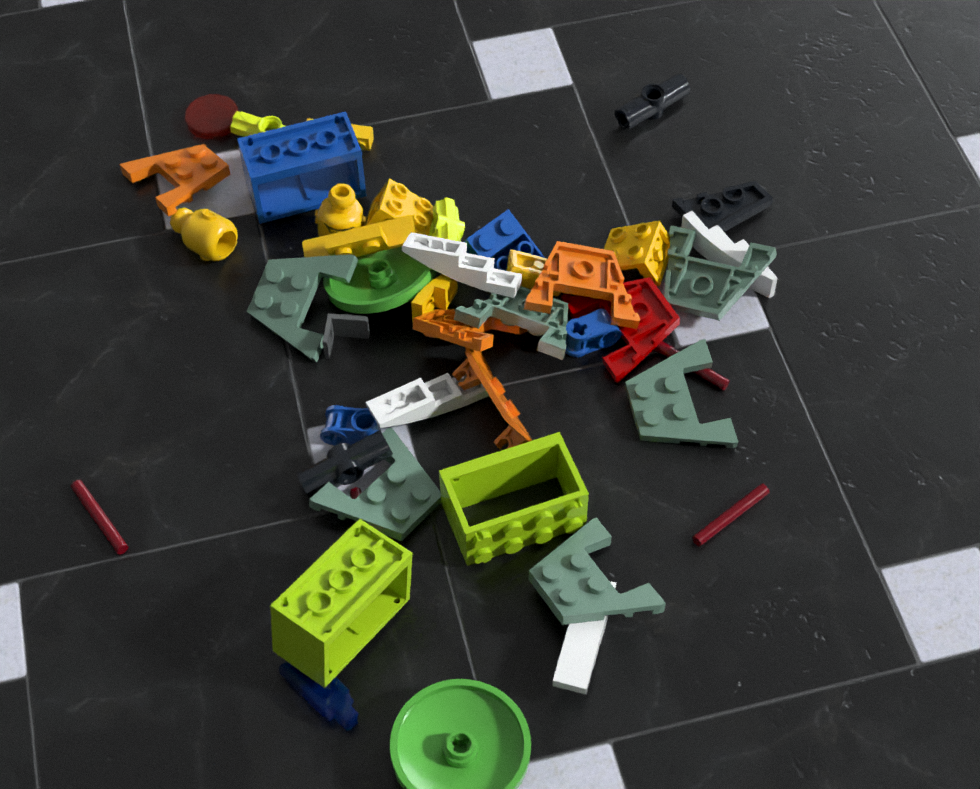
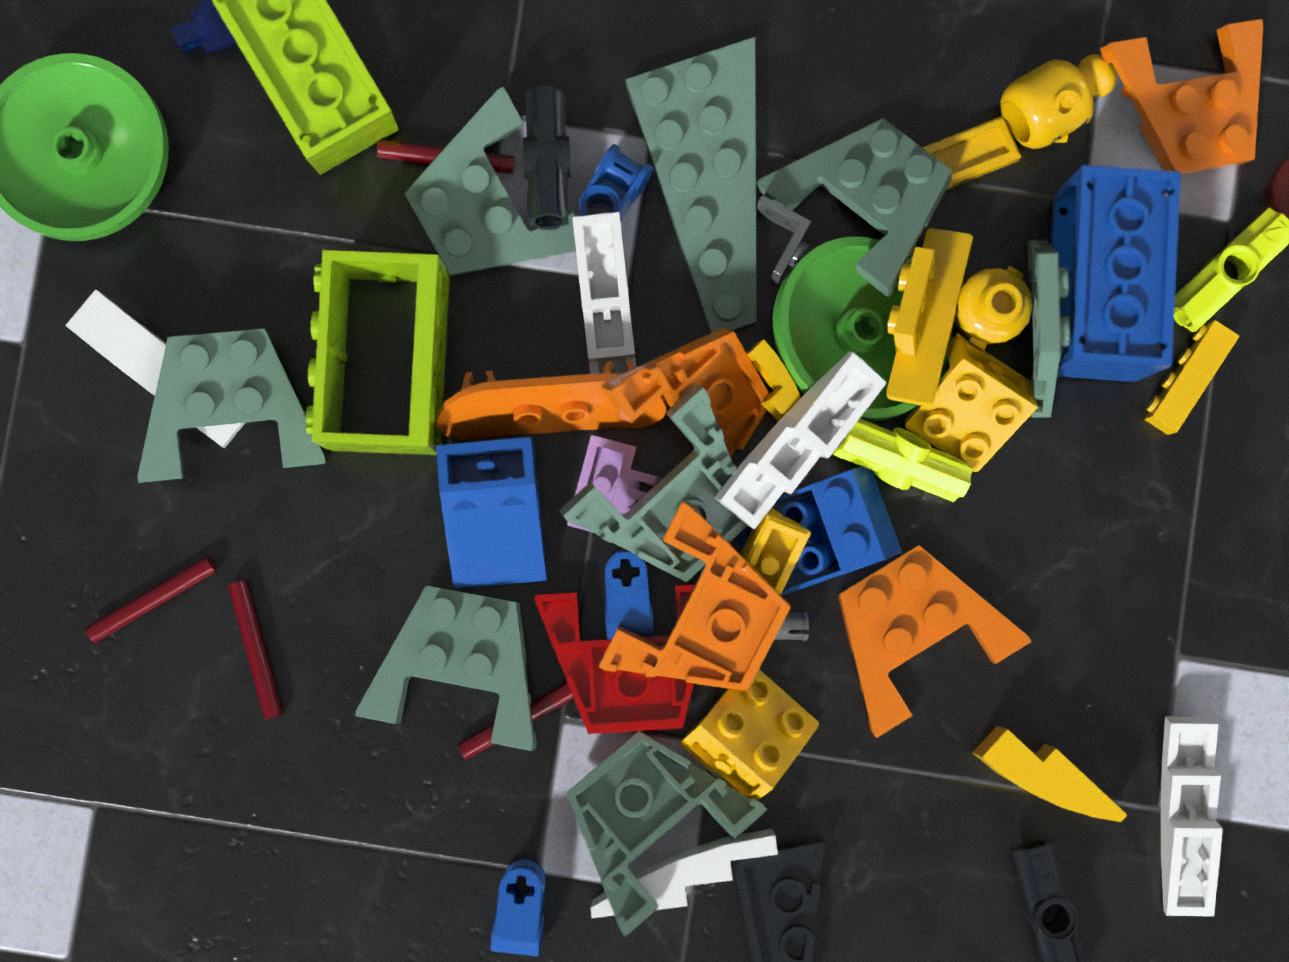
camera: 115 degrees right, 30 degrees up
(245, 264) = (976, 151): none -> yellow tile
(296, 398) = (704, 153): none -> sand green wing
(349, 168) = (1049, 328): none -> sand green wing
(532, 367) = (609, 469): none -> lavender hinge
(536, 212) = (905, 612): none -> orange wing
(576, 66) = (1189, 815): none -> white slope
(578, 410) = (492, 512): none -> blue slope
(582, 126) = (1046, 775): none -> yellow slope
(734, 586) = (150, 599): none -> dark red bar
(797, 318) = (519, 915): none -> blue piece

